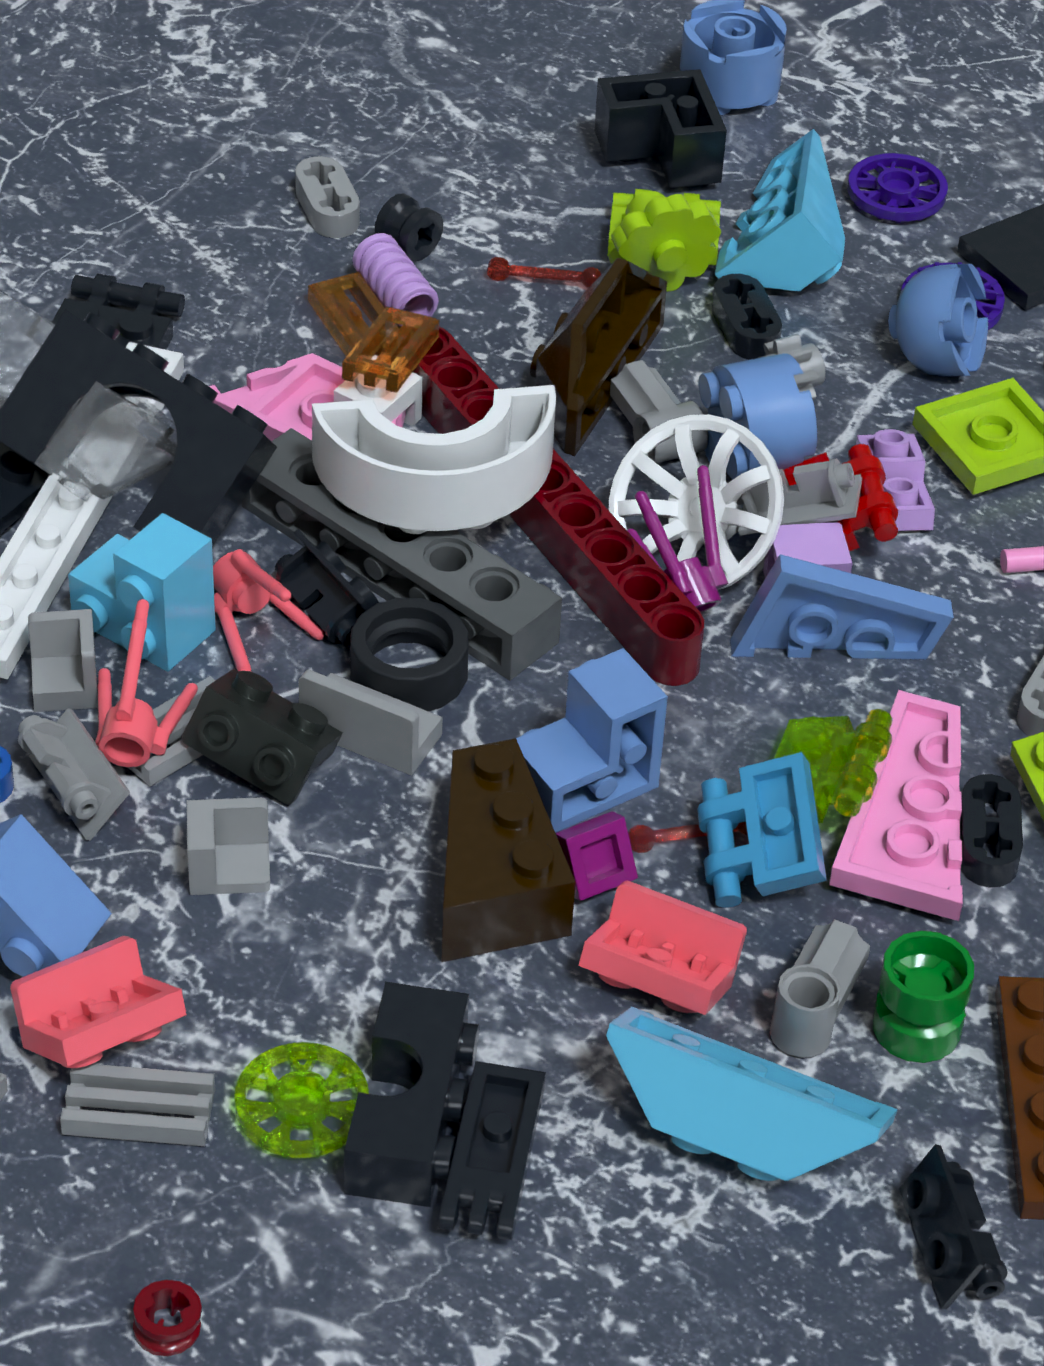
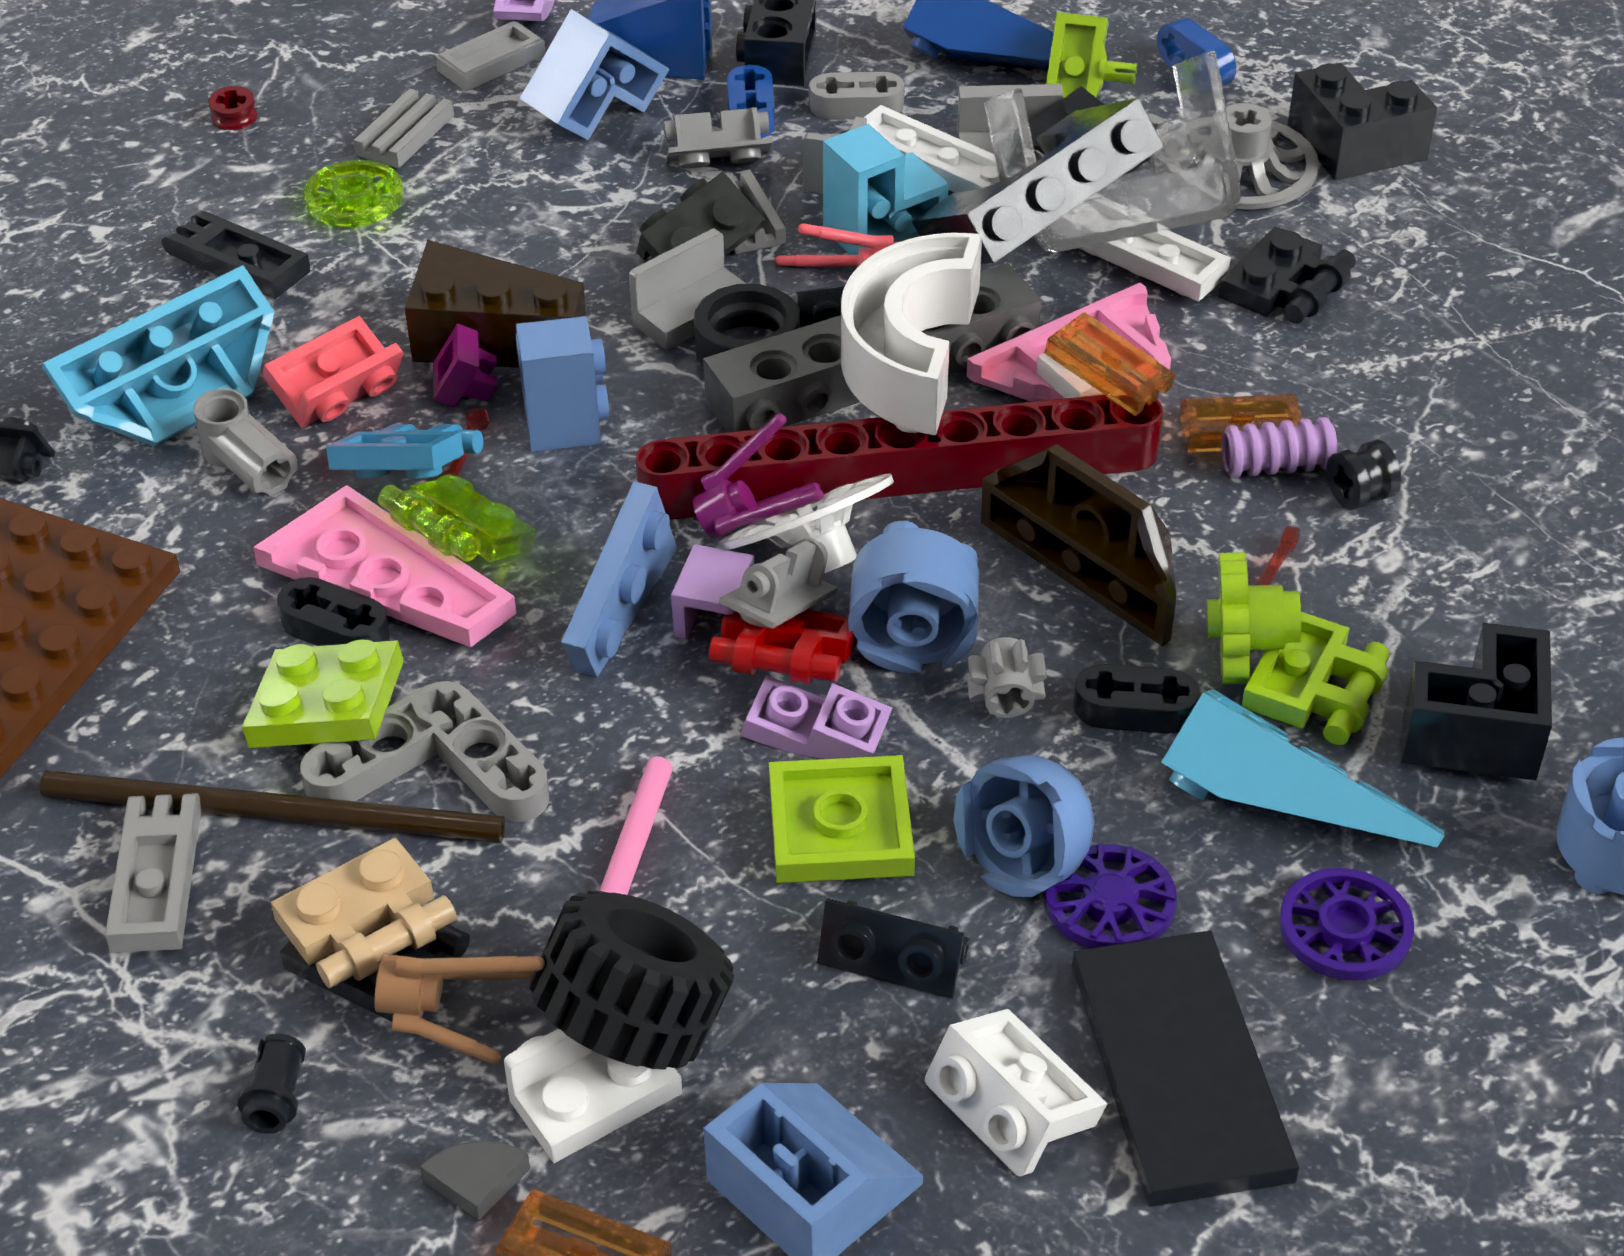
camera: 115 degrees right, 0 degrees up
(92, 1004) = (479, 106): coral bracket -> none
(129, 728) = (731, 155): coral plant -> none
(228, 846) = (600, 193): light grey panel -> none
(333, 204) = (1452, 446): light grey beam -> none
(401, 1140) = (340, 240): black arch -> none
(649, 403) = (1009, 564): light grey piece -> none
(923, 996) = (177, 483): green wheel -> none

